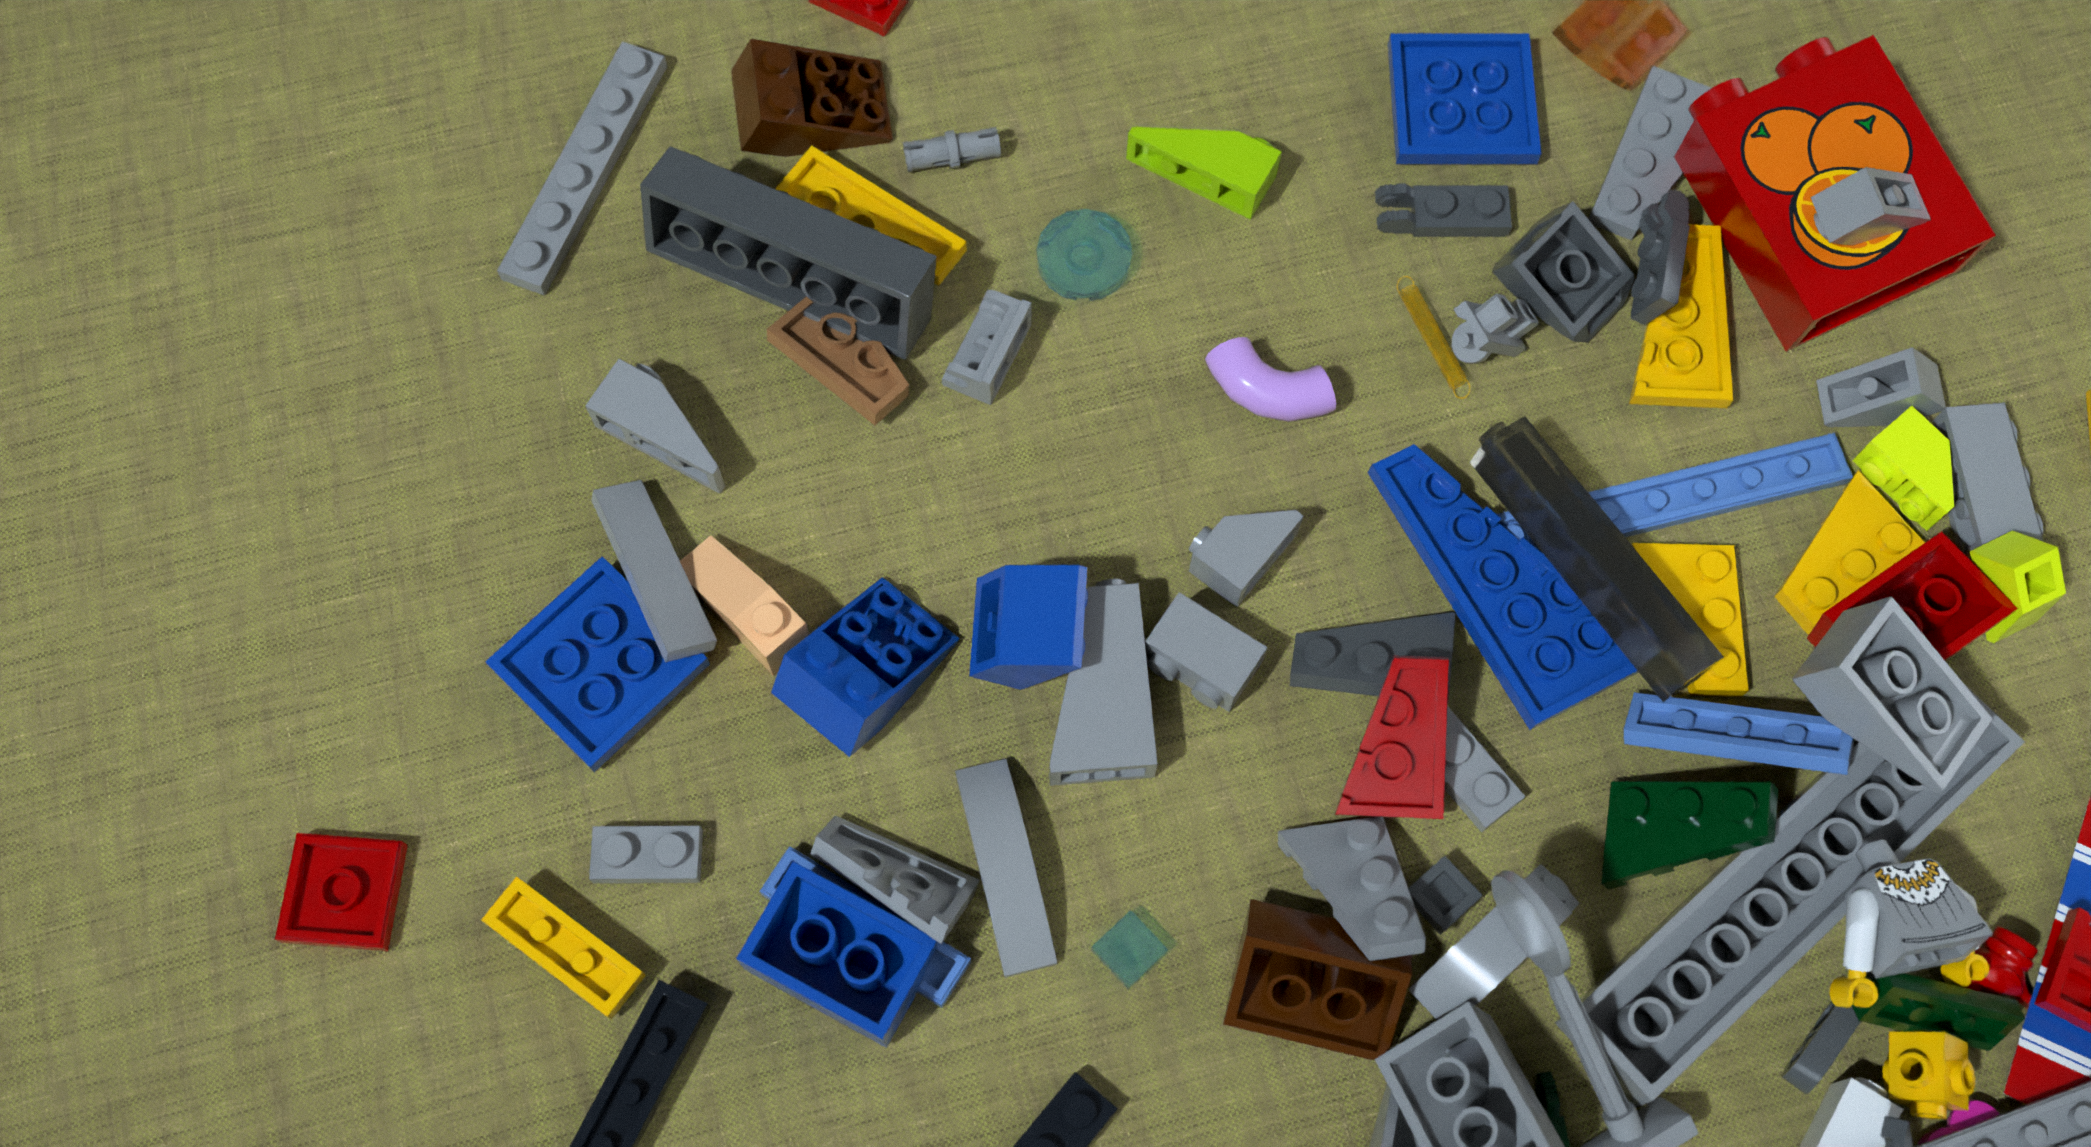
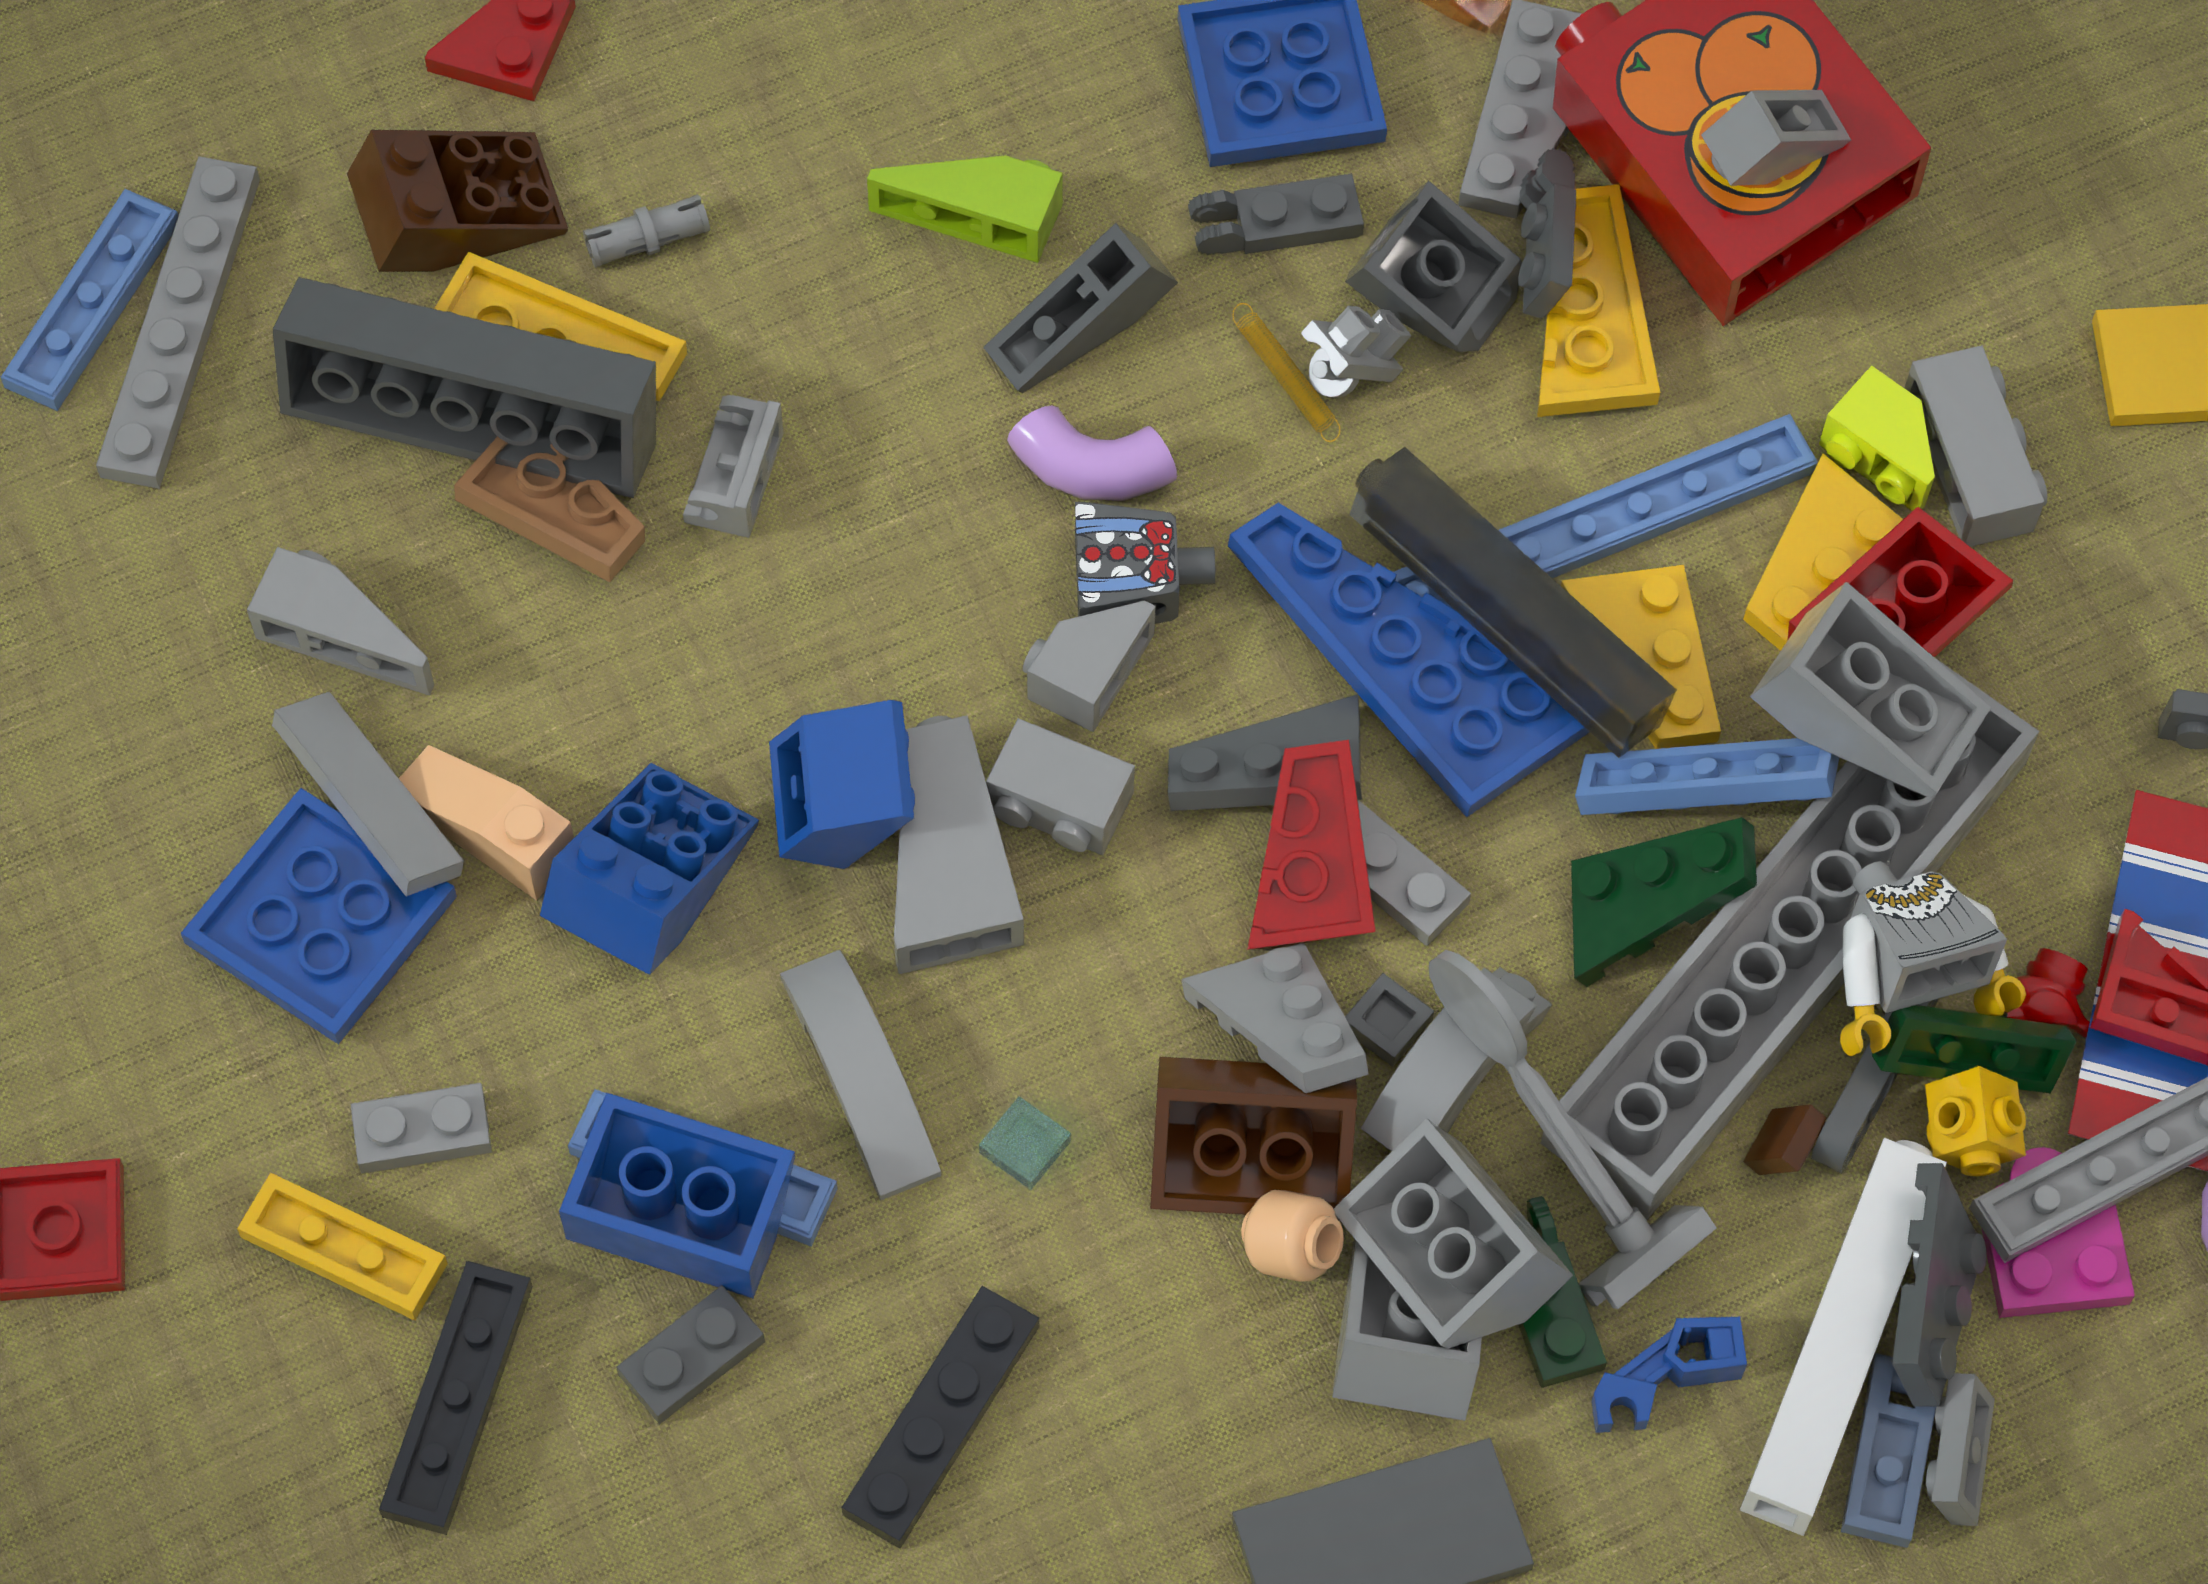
camera: 10 degrees left, 5 degrees down
(520, 140) = (90, 300): none -> medium blue tile
(827, 1088) = (690, 1354): none -> dark grey plate
(900, 878) = (734, 1098): light grey wing -> none
(1084, 254) = (835, 336): clear light blue tile -> none
(1279, 261) = (1081, 308): none -> dark grey slope
(1290, 473) = (1133, 558): none -> torso
(1338, 1075) = (1292, 1235): none -> light nougat head
(1762, 1058) = (1785, 1140): none -> reddish brown tile
(1881, 391) = (1836, 351): light grey slope -> none
(2026, 574) = (2025, 545): neon yellow slope -> none

